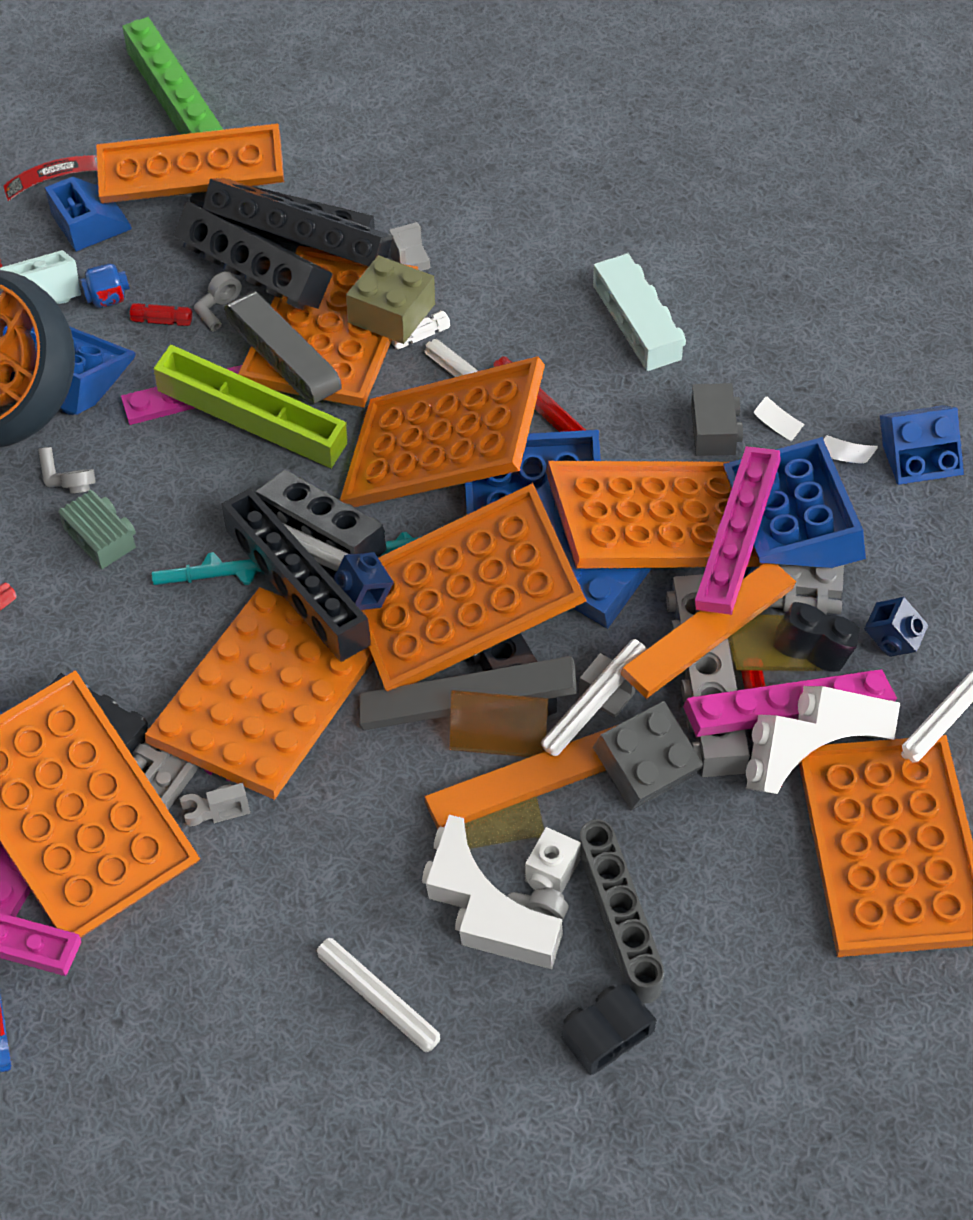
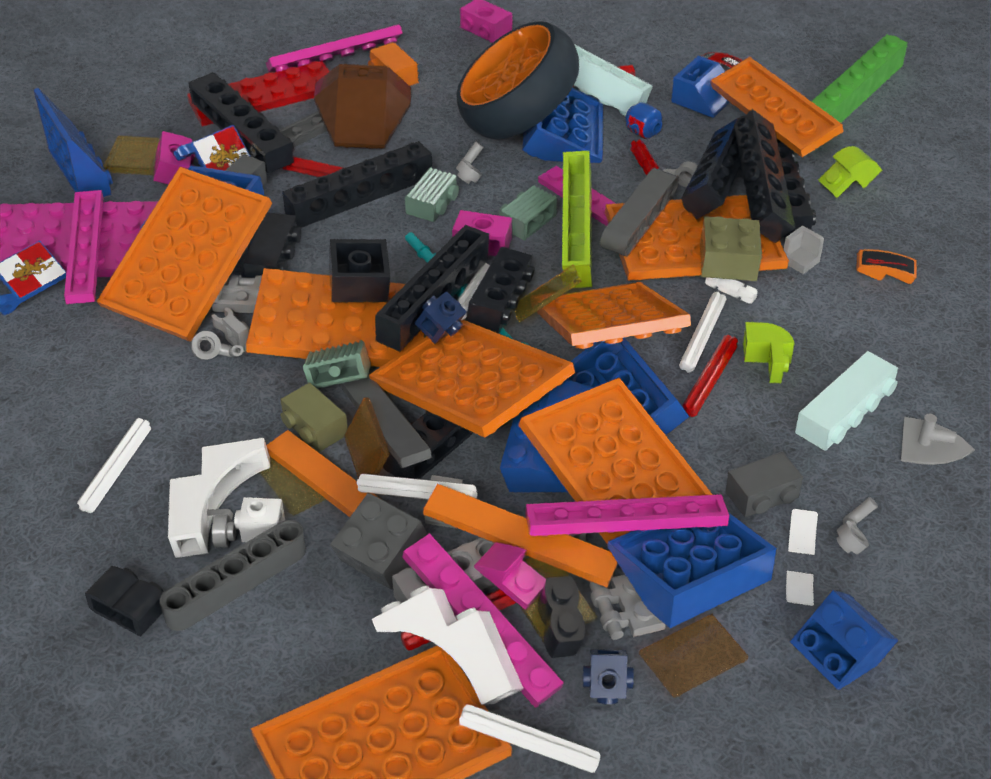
camera: 65 degrees right, 10 degrees down
(30, 595) = (357, 184): none -> black brick
(192, 451) = (530, 211): none -> sand green brick
(197, 506) = (497, 226): none -> dark pink brick
(231, 840) = (216, 347): none -> light grey plate
(232, 632) = (359, 270): none -> black brick
(314, 162) = (850, 166): none -> lime brick
(355, 712) = (337, 365): none -> sand green brick
(361, 472) = (547, 292): none -> clear yellow piece
(417, 764) = (313, 417): none -> olive brick
(463, 200) = (879, 263): none -> slope
(533, 333) = (768, 345): none -> lime brick
(712, 281) = (930, 443): none -> light grey shield
(750, 654) = (508, 571): none -> dark pink slope
(806, 386) = (850, 536): none -> light grey plate
(889, 564) = (693, 655): none -> clear orange piece

